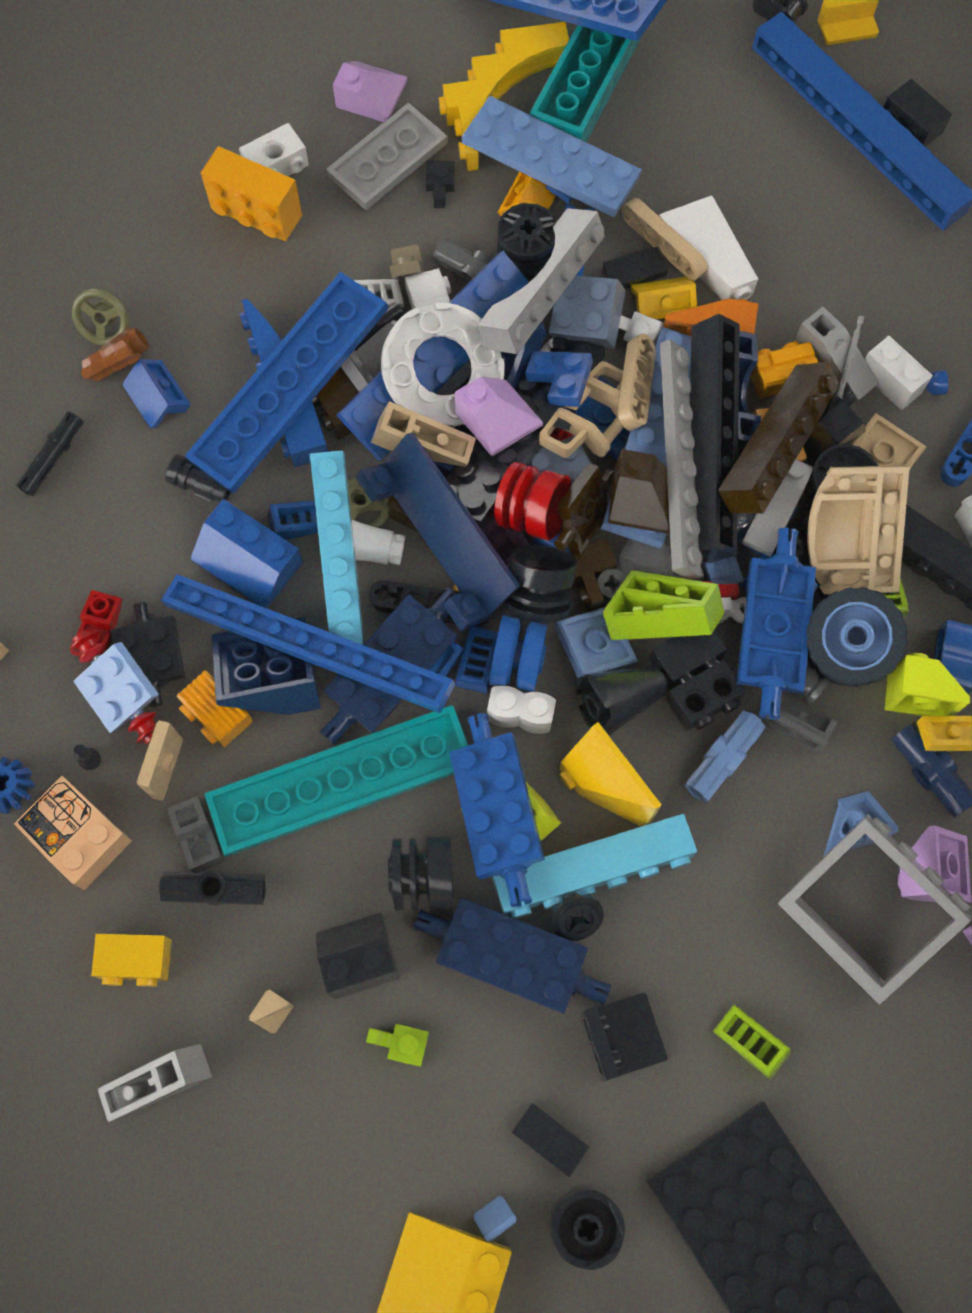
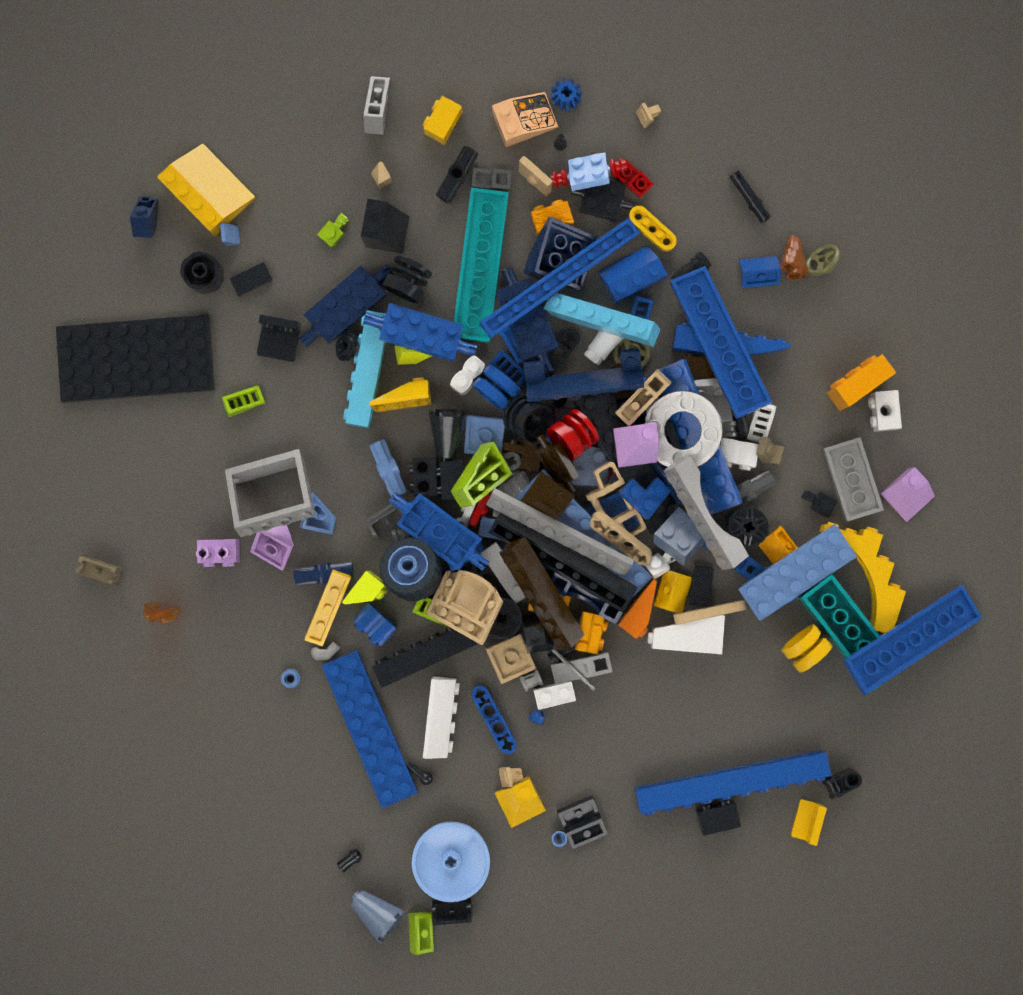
camera: 115 degrees right, 15 degrees up
(161, 549) = (647, 221): none -> yellow plate
(642, 103) = (806, 648): none -> yellow wheel
(890, 405) = (531, 680): none -> light grey bush

